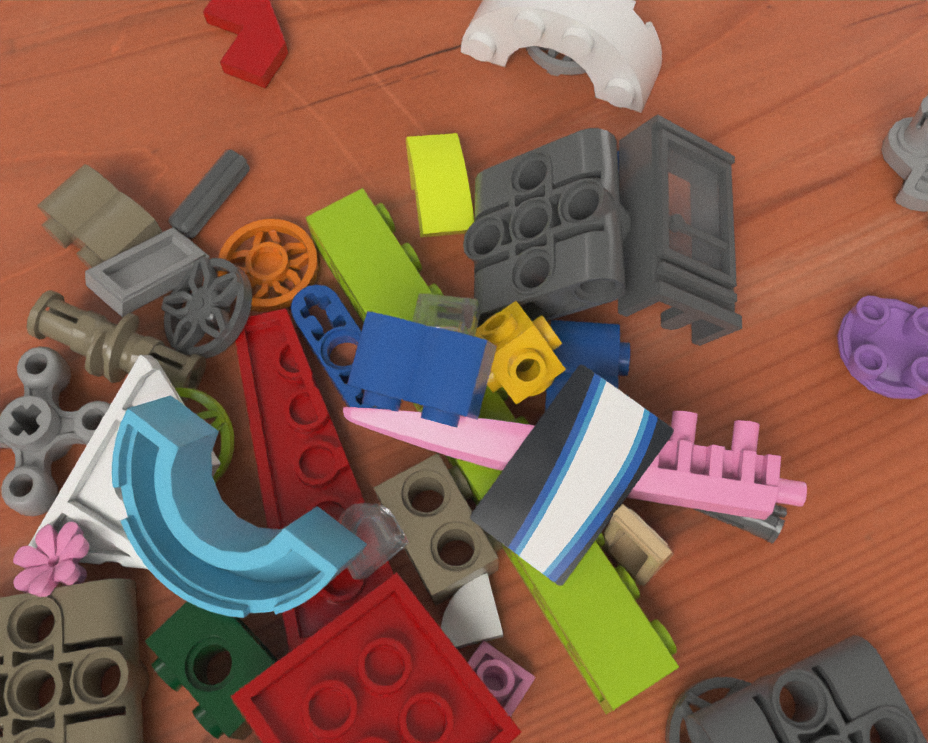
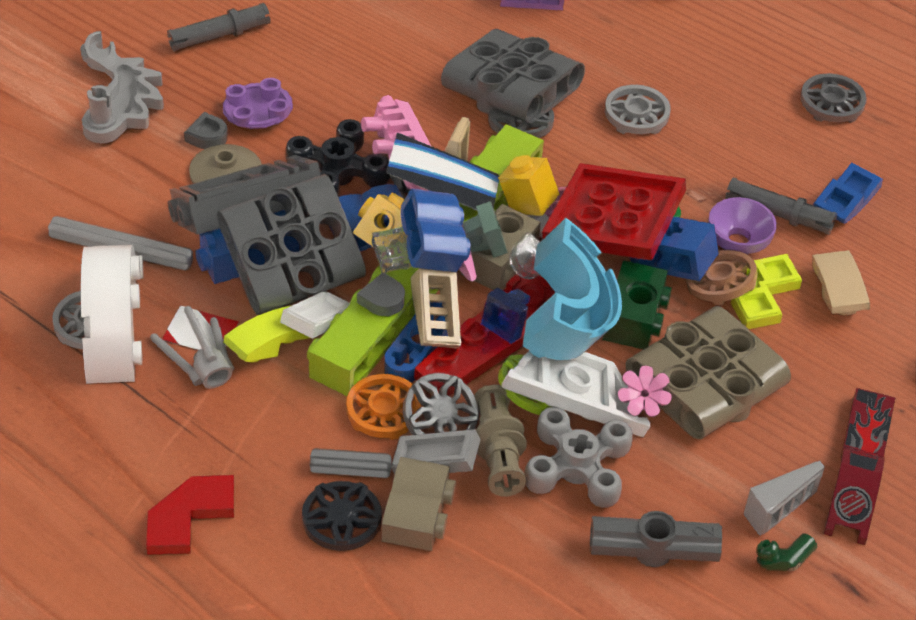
camera: 125 degrees left, 20 degrees down
(151, 158) = (341, 515): none -> black wheel
(278, 441) = (506, 313): none -> clear blue tile
(301, 346) = (446, 282): none -> tan slope
(391, 292) = (382, 296): none -> dark grey tile
(424, 481) = (485, 231): none -> sand green tile
(427, 107) = (210, 364): none -> light grey plant
(435, 236) = (313, 314): none -> white tile
(502, 134) = (181, 332): none -> white sticker
(516, 620) = (529, 185): none -> yellow brick
(695, 83) = (92, 235): none -> light grey axle
(723, 378) = (339, 159): none -> black gear
(776, 285) = (221, 161): none -> dark tan dish
(861, 269) = (207, 132): none -> dark grey tile

